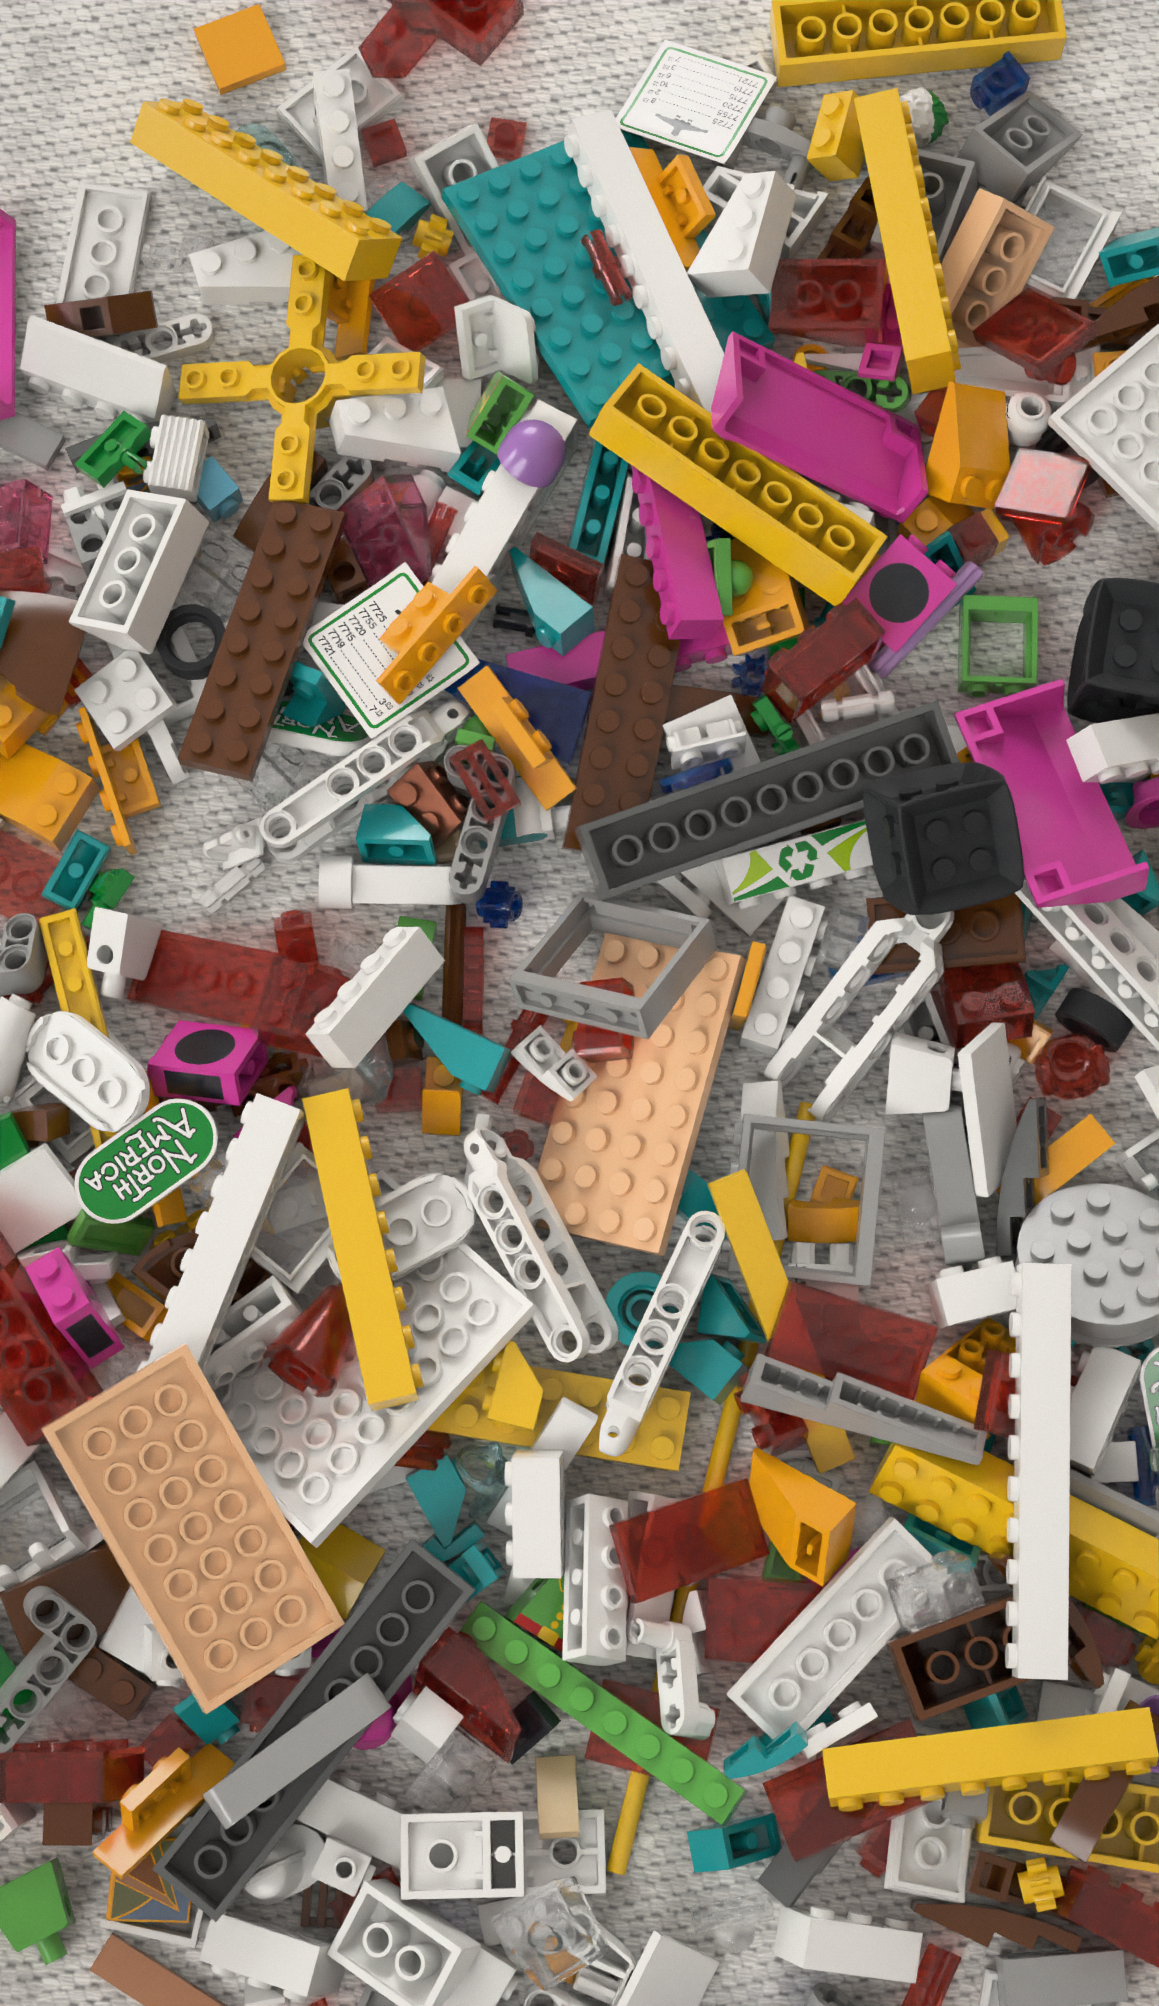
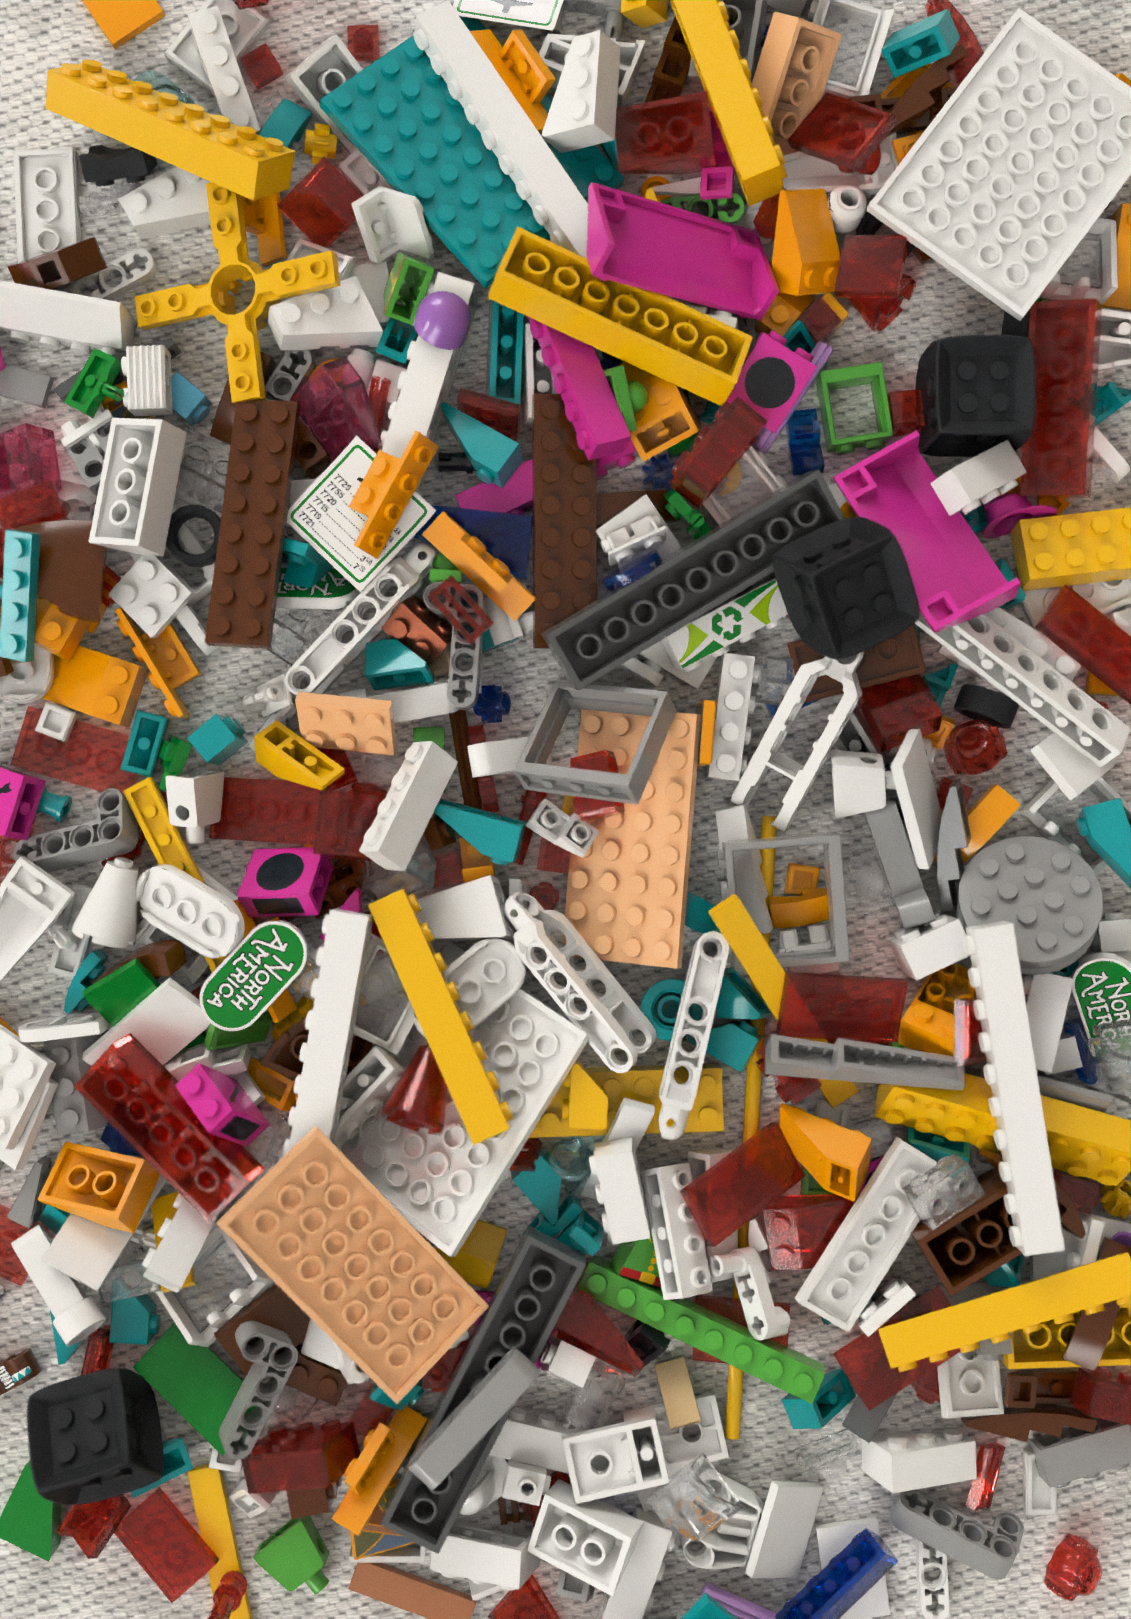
camera: 10 degrees left, 10 degrees up
(166, 880) = (218, 739): none -> teal brick
(185, 217) = (107, 164): none -> black brick
(250, 918) = (294, 758): none -> yellow slope
(322, 889) = (346, 723): none -> light nougat plate
(418, 1141) = (467, 912): none -> white slope
(490, 963) = (497, 756): none -> white beam
(606, 267) = (472, 143): clear red pin -> none
(755, 1757) = (829, 1345): teal slope -> none
(858, 706) = (751, 483): white axle -> none
(932, 672) = (804, 442): none -> clear blue slope
(1041, 1884) = (1060, 1389): yellow gear -> none
(1057, 659) = (906, 412): none -> clear red panel

